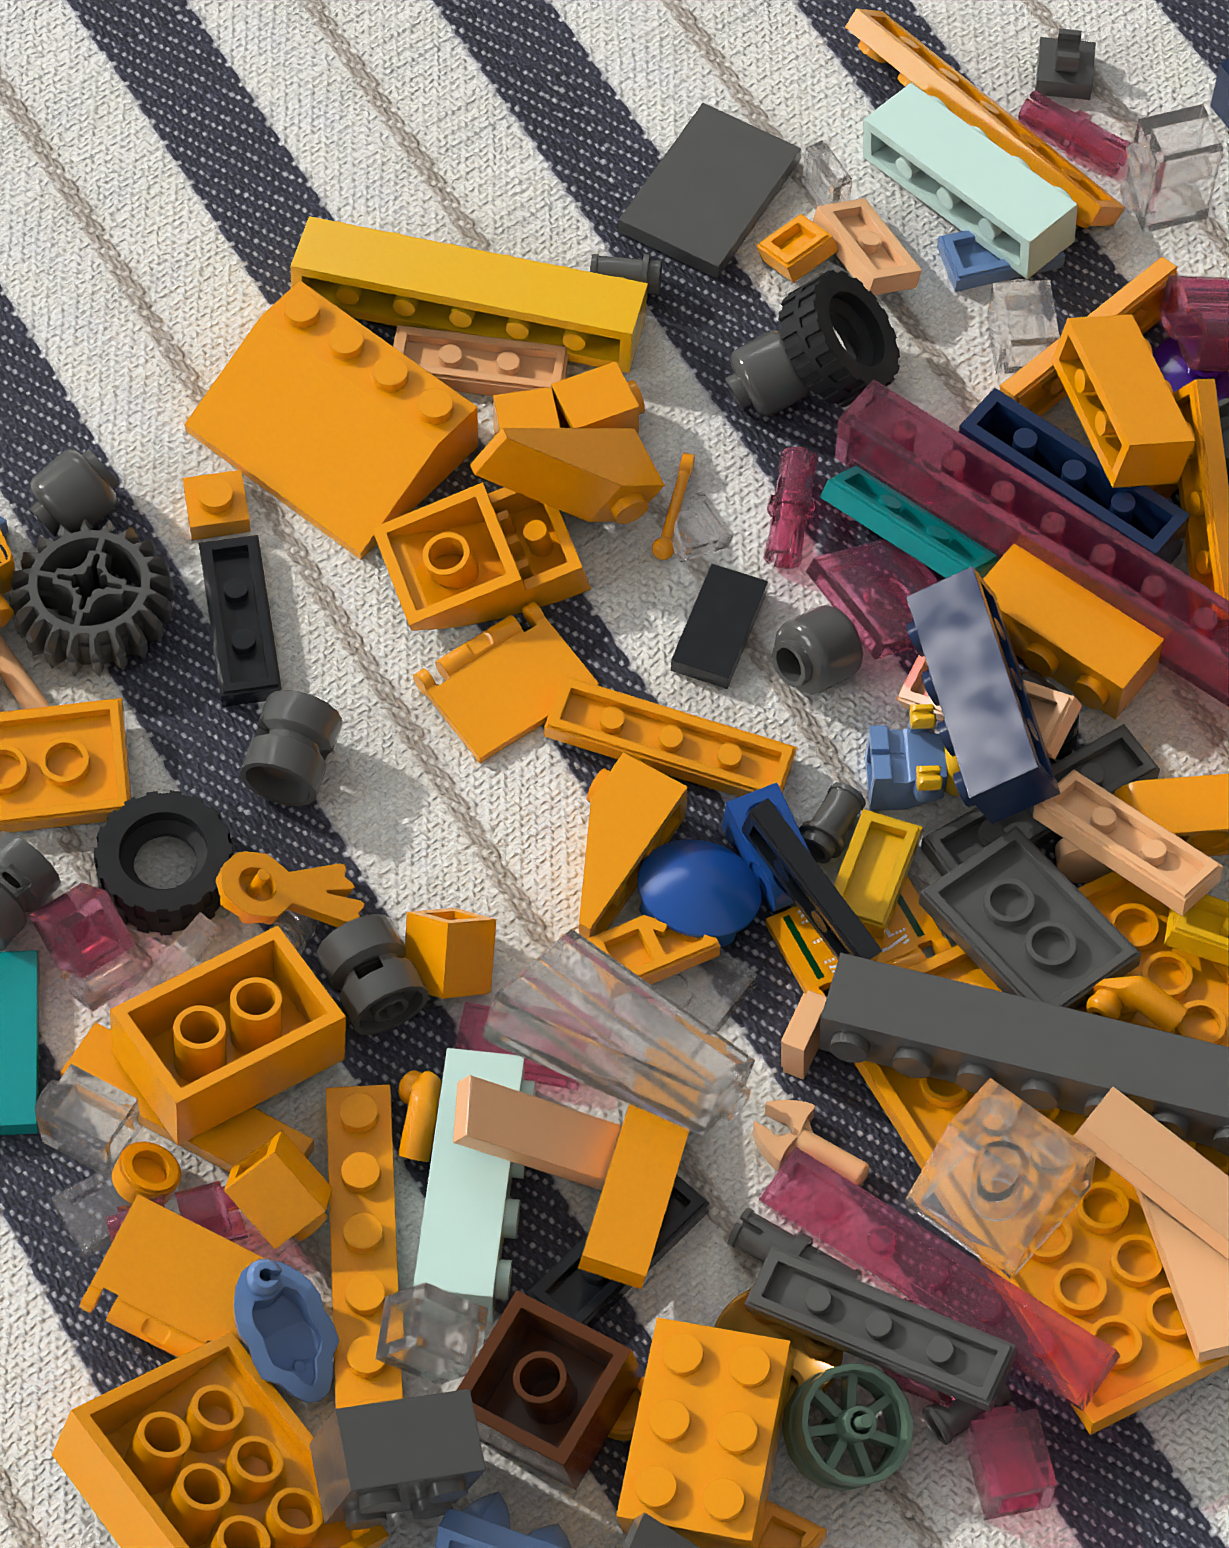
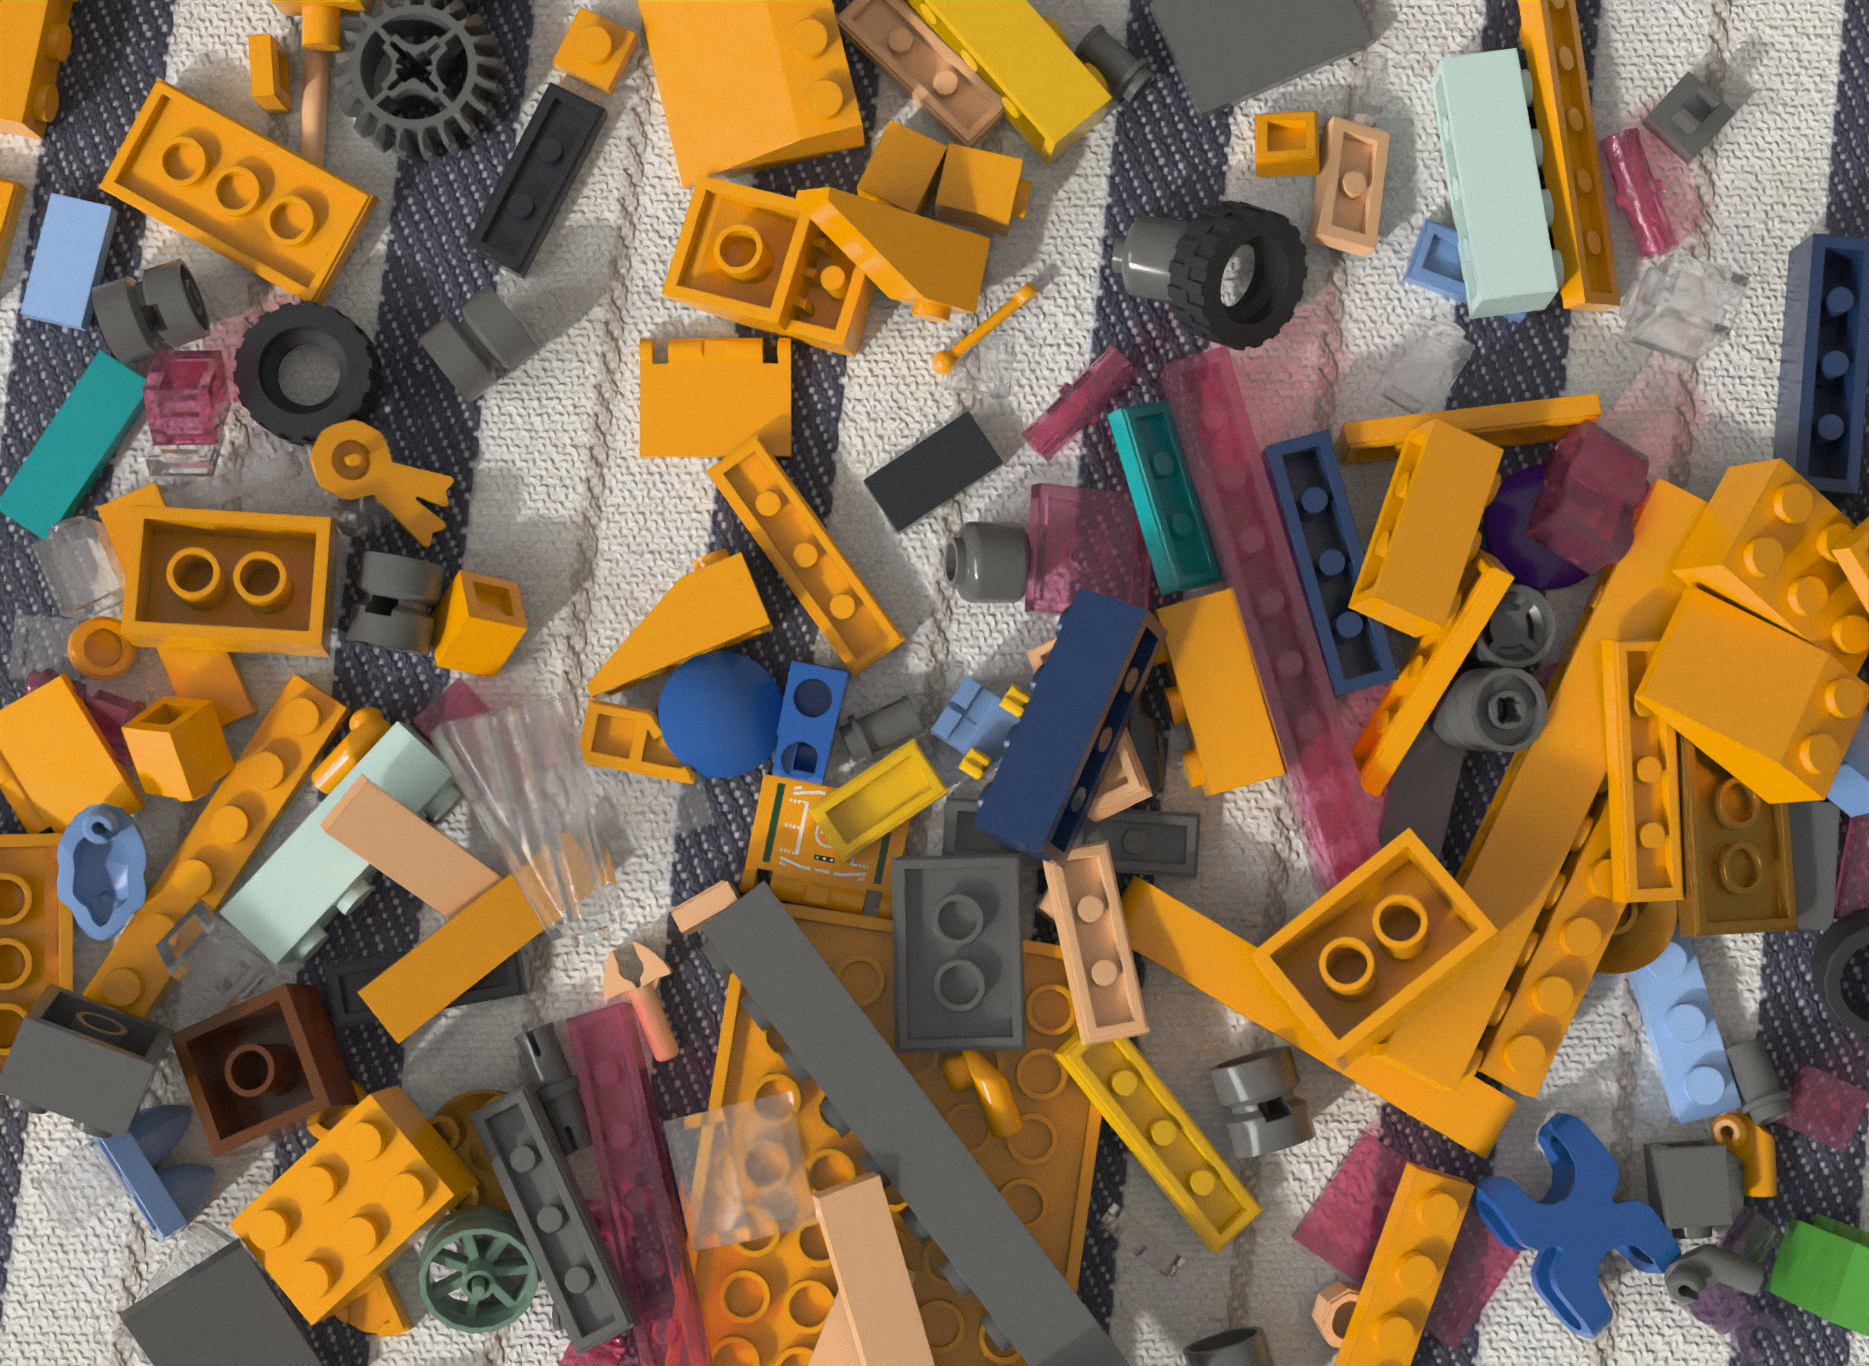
camera: 40 degrees right, 25 degrees up
(807, 883) = (793, 796): black tile -> none

